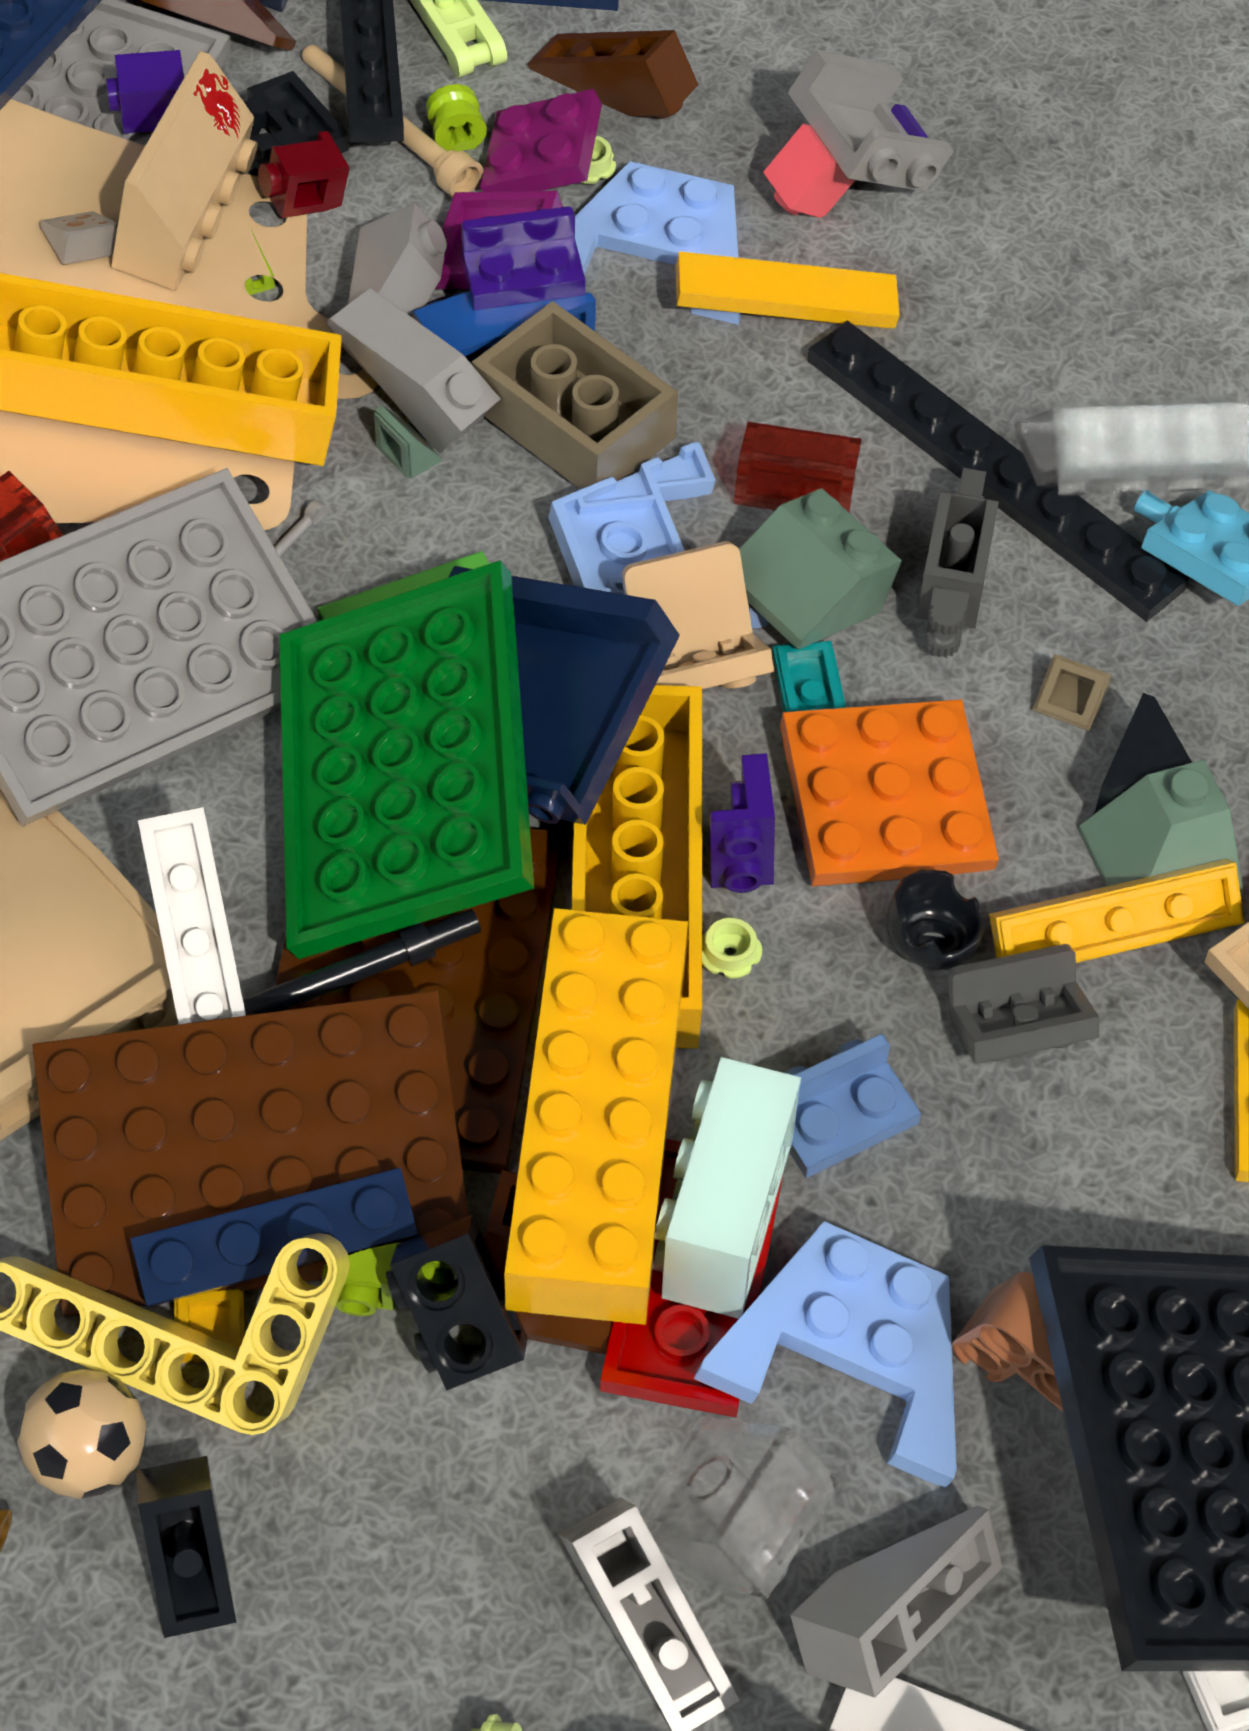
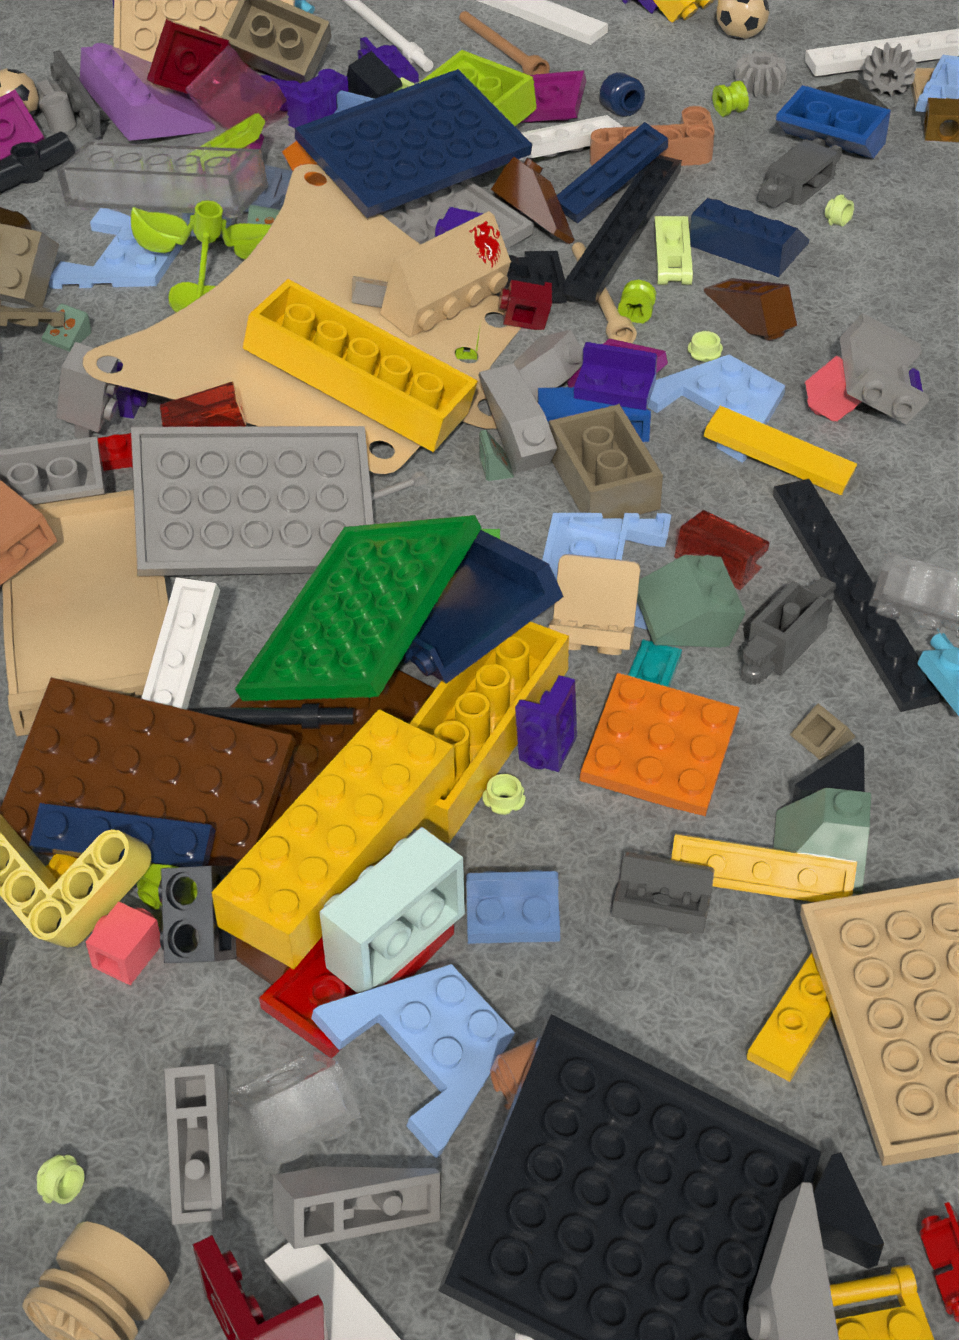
camera: 30 degrees right, 10 degrees down
(363, 1383) = (124, 942): none -> coral brick
(542, 143) = (680, 327): magenta plate -> none
(931, 904) = (638, 814): black hair -> none

